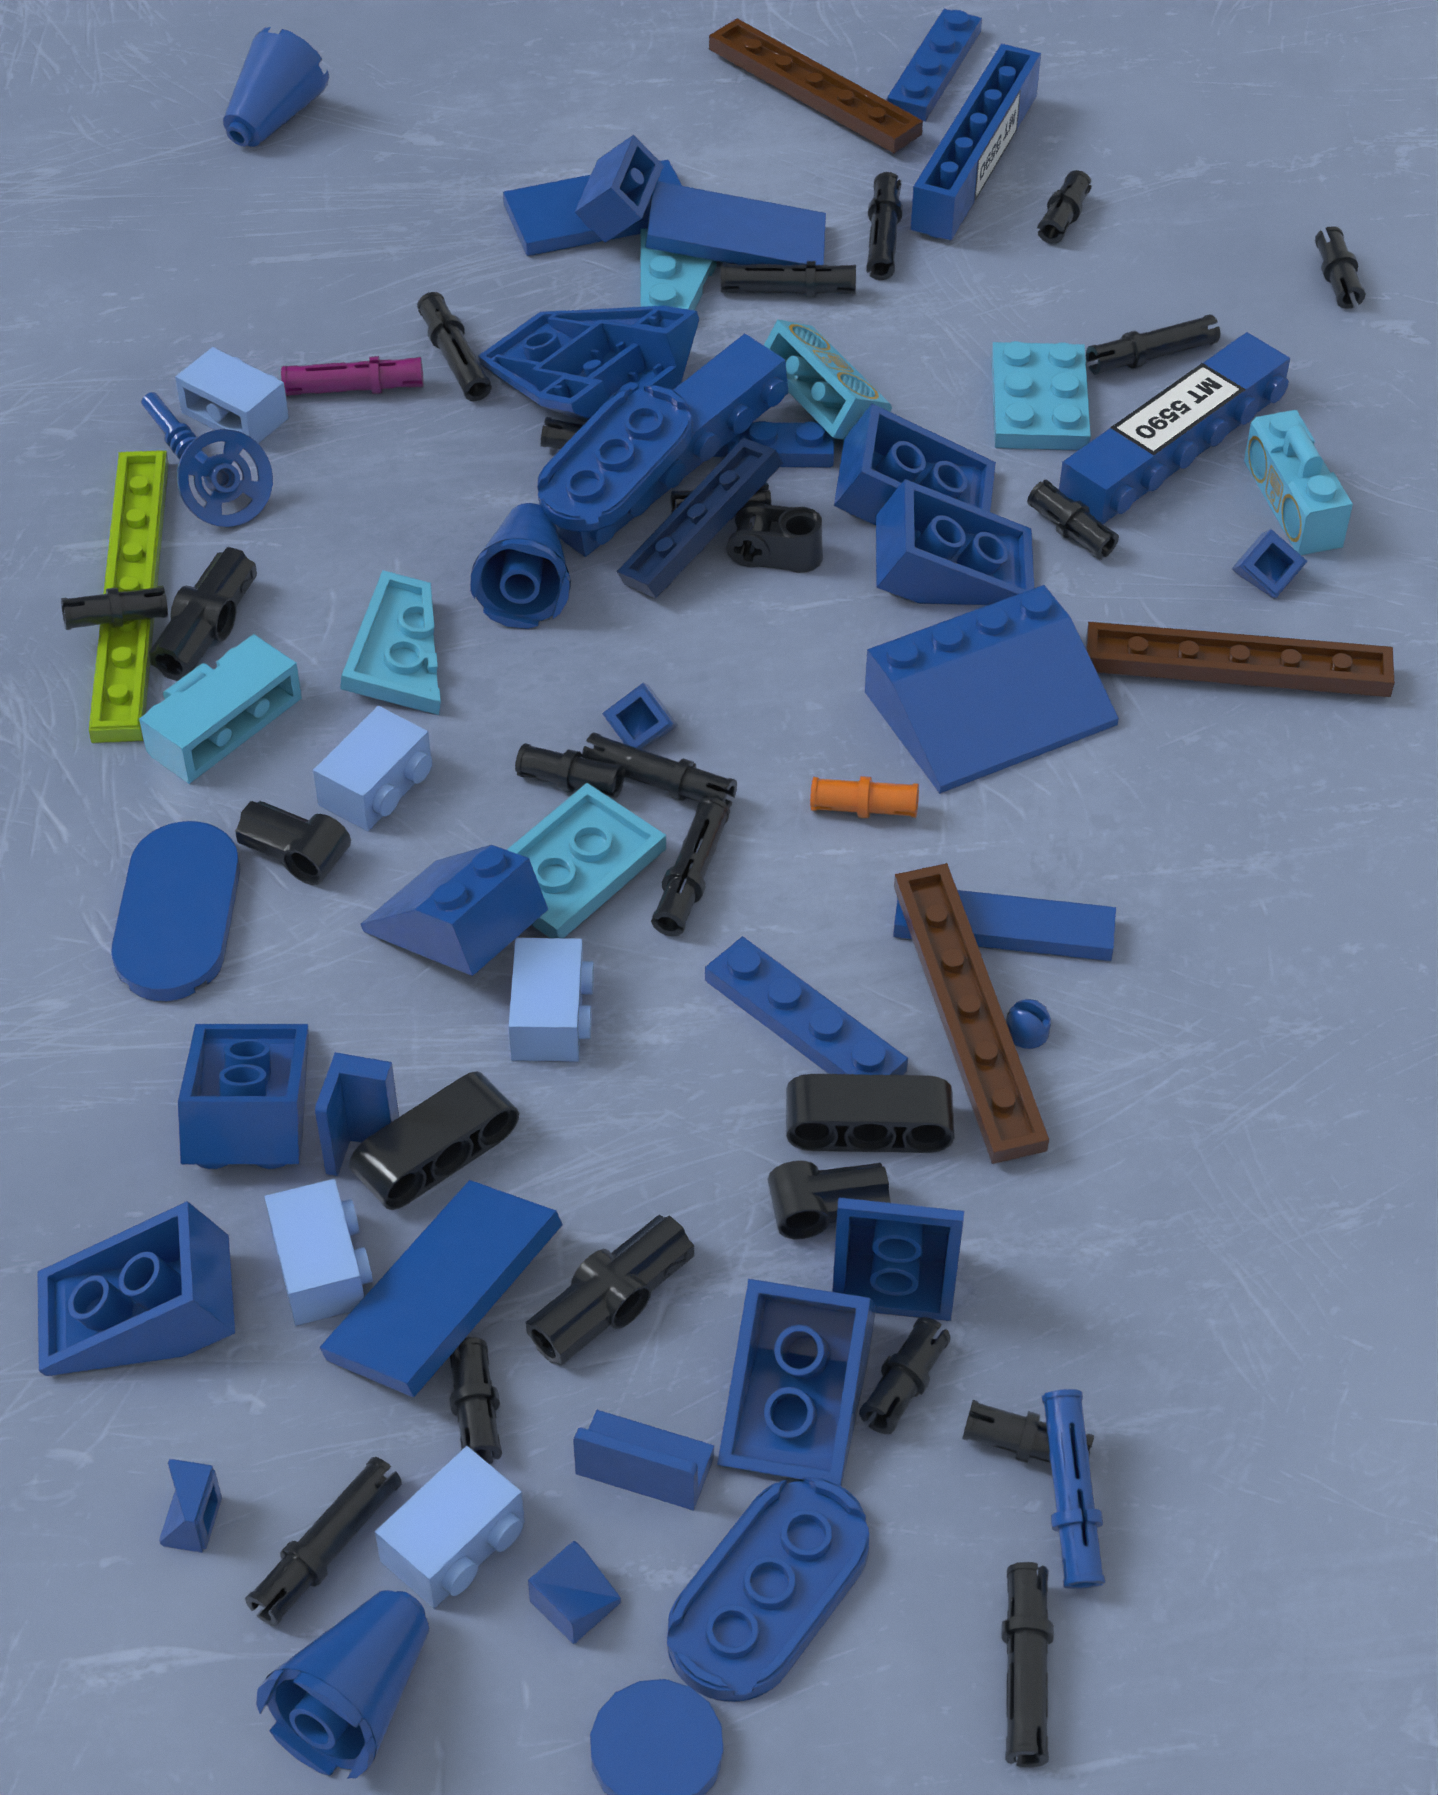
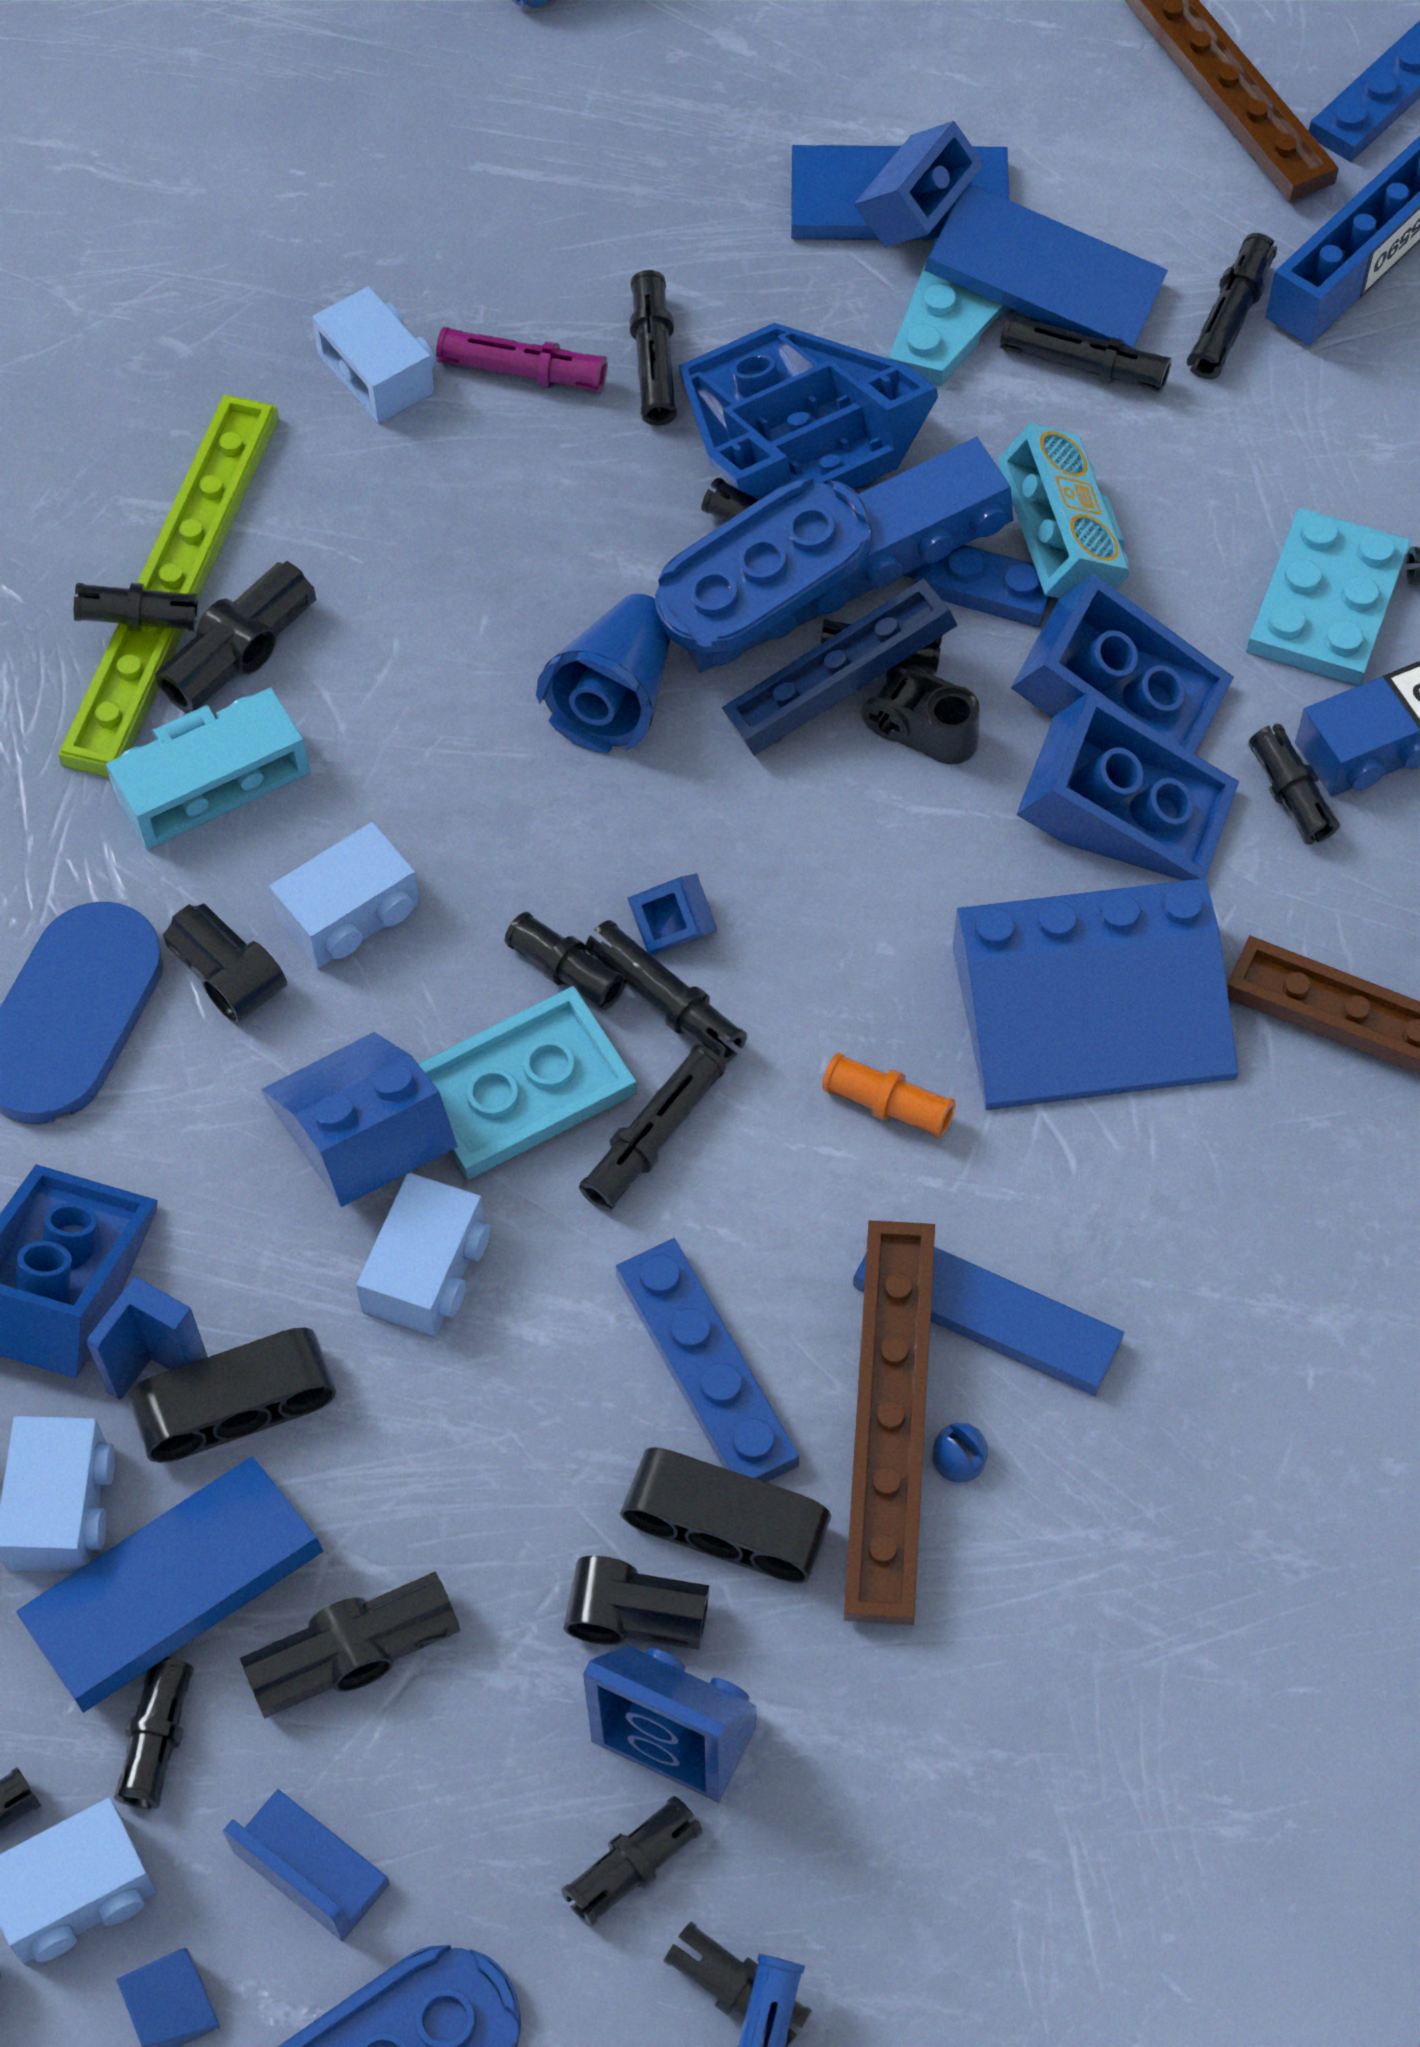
camera: 20 degrees right, 10 degrees up
(216, 470) = (314, 448): blue dish -> none
(396, 647) = (433, 738): medium azure wing -> none
(796, 1381) = (506, 1829): blue slope -> none

